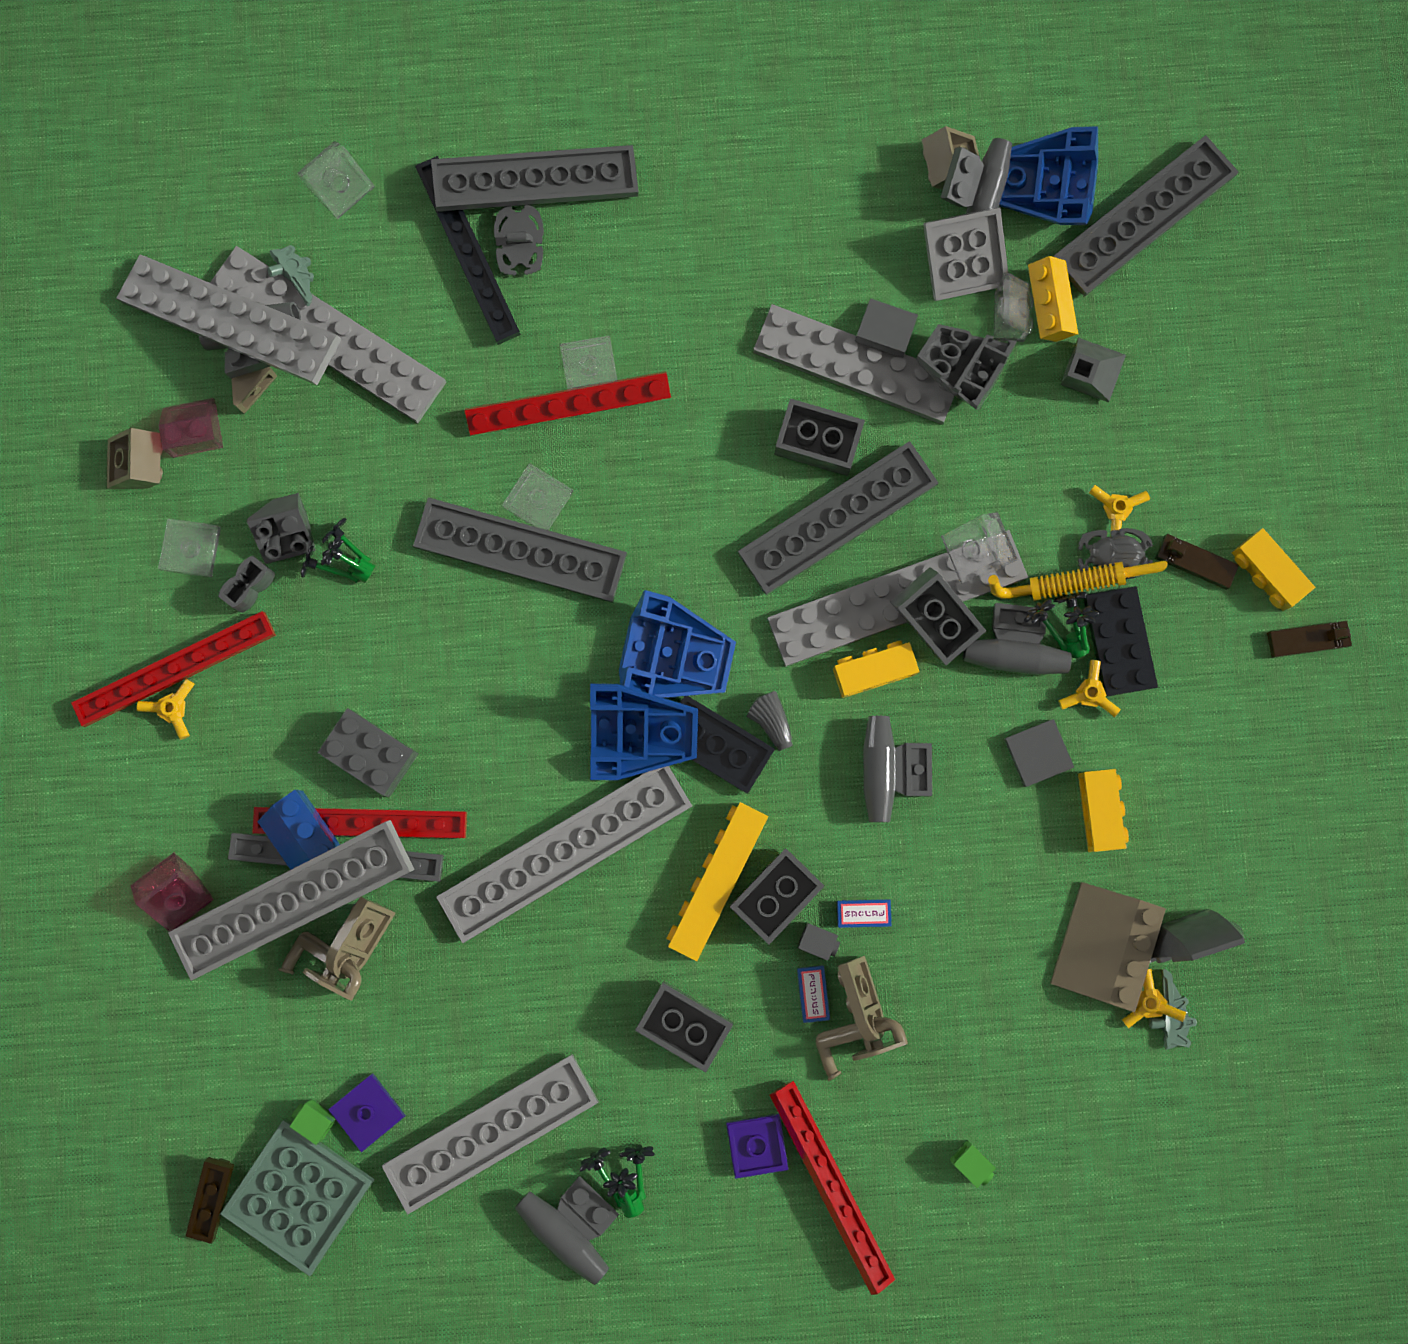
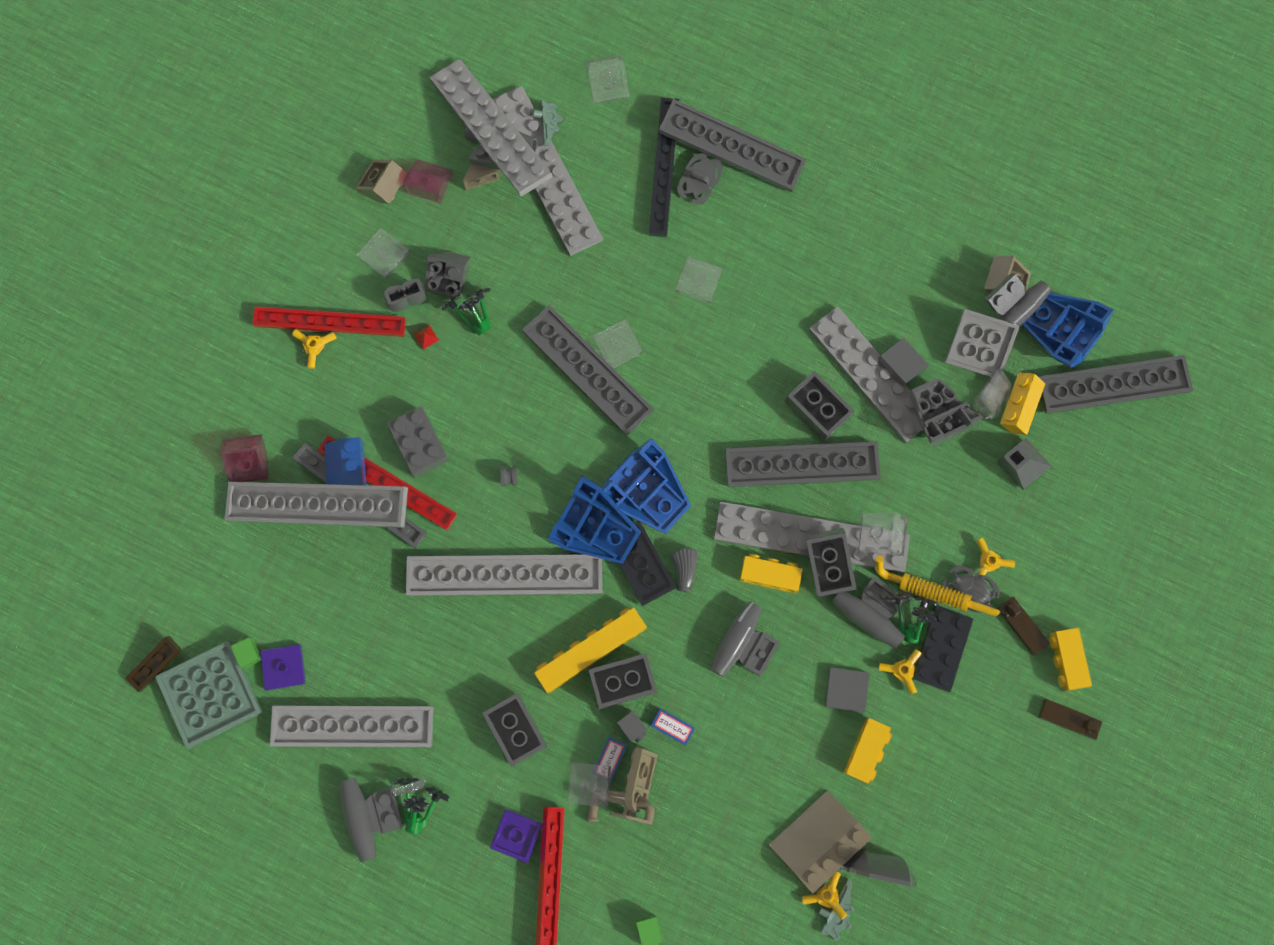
camera: 25 degrees right, 5 degrees down
(302, 620) = (426, 337): none -> red slope
(348, 951) = (333, 557): dark tan plate -> none
(501, 731) = (509, 476): none -> dark grey wheel
(567, 403) = (671, 295): red plate -> none
(600, 1168) = (408, 787): none -> clear piece
(807, 1037) = (589, 784): none -> clear plate

